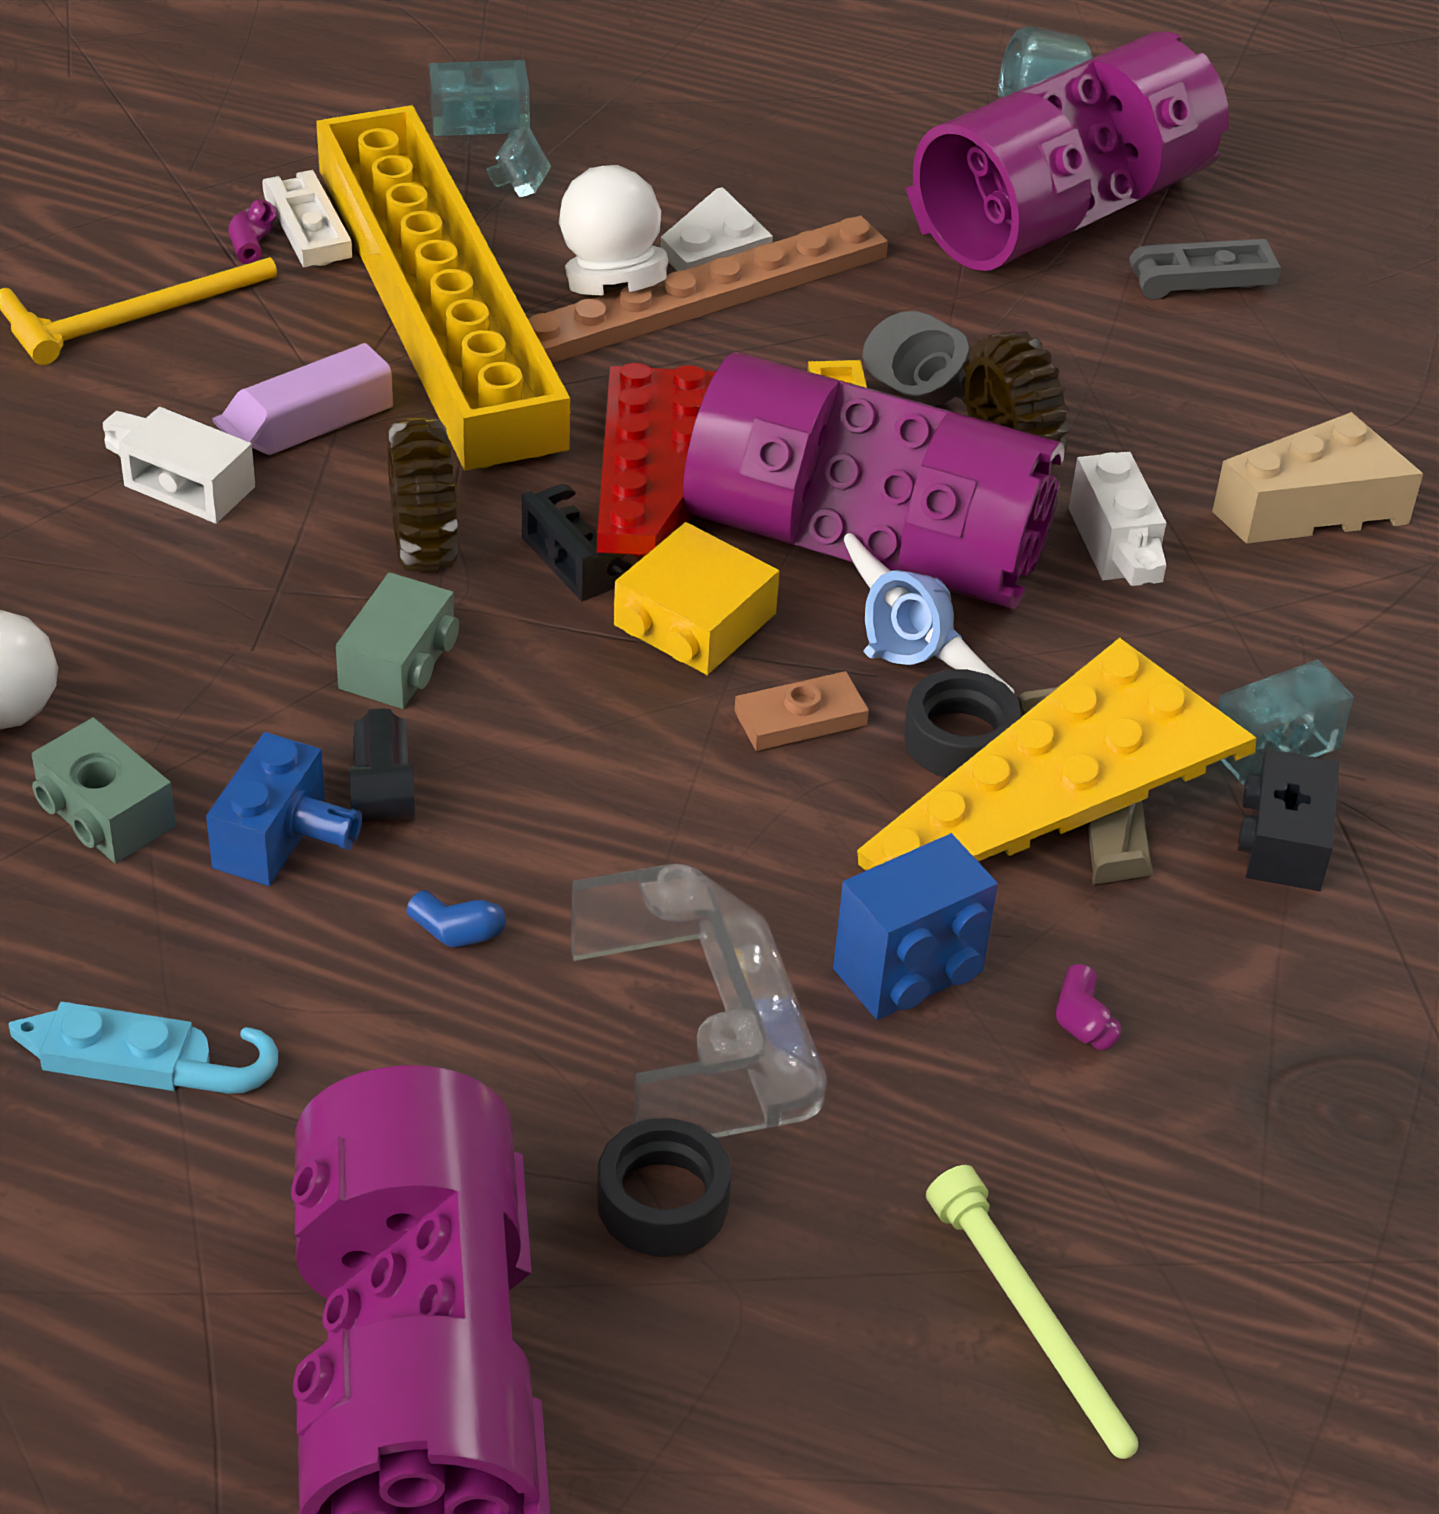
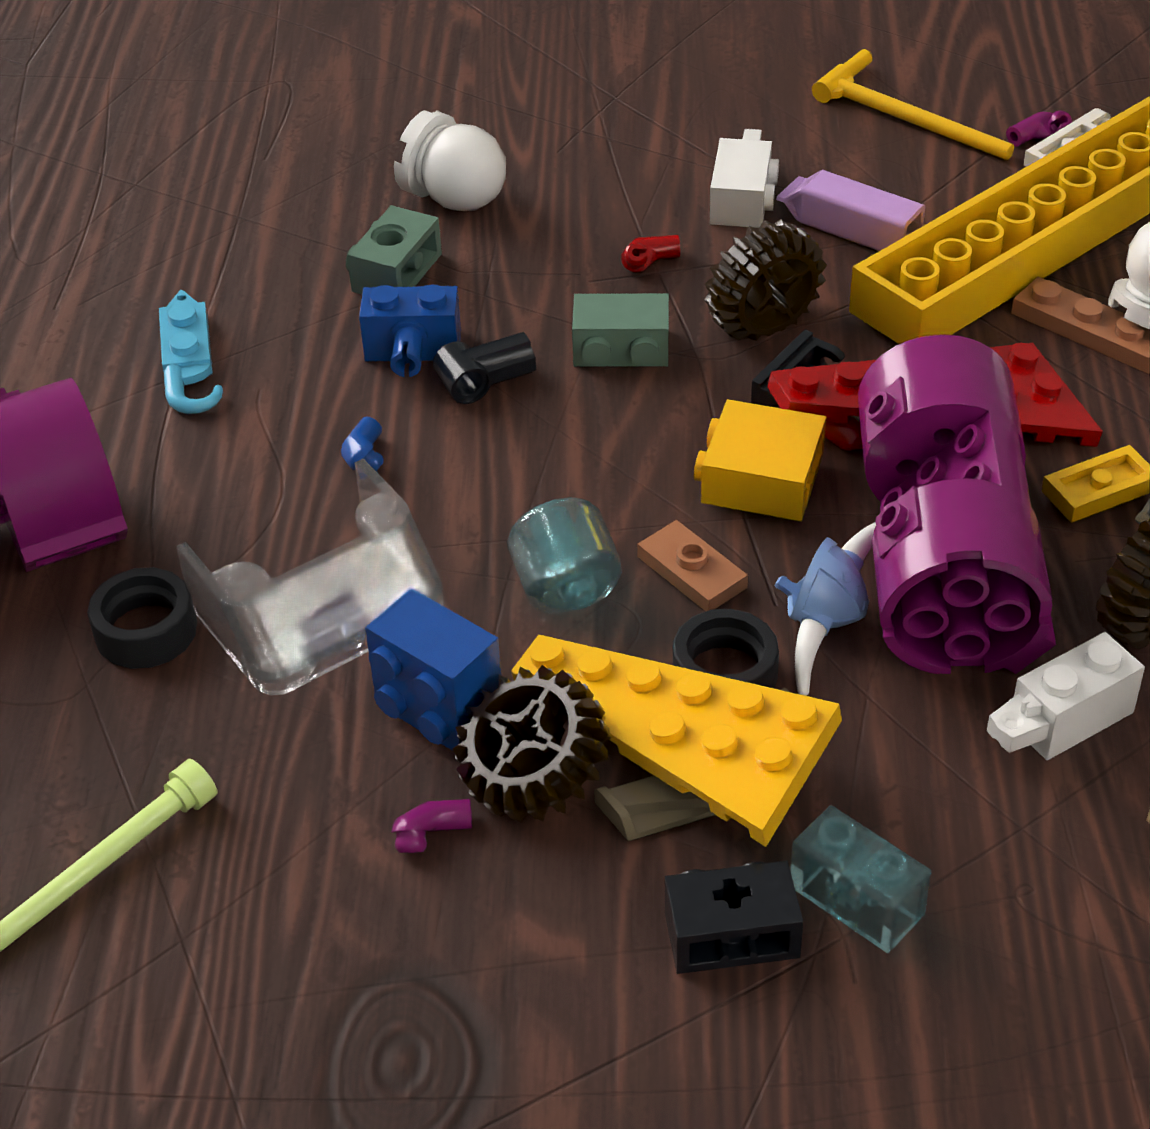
camera: 75 degrees right, 0 degrees up
(247, 582) = (646, 250): none -> red arm
(773, 786) = (564, 555): none -> clear light blue head
(1064, 928) = (530, 772): none -> dark brown gear

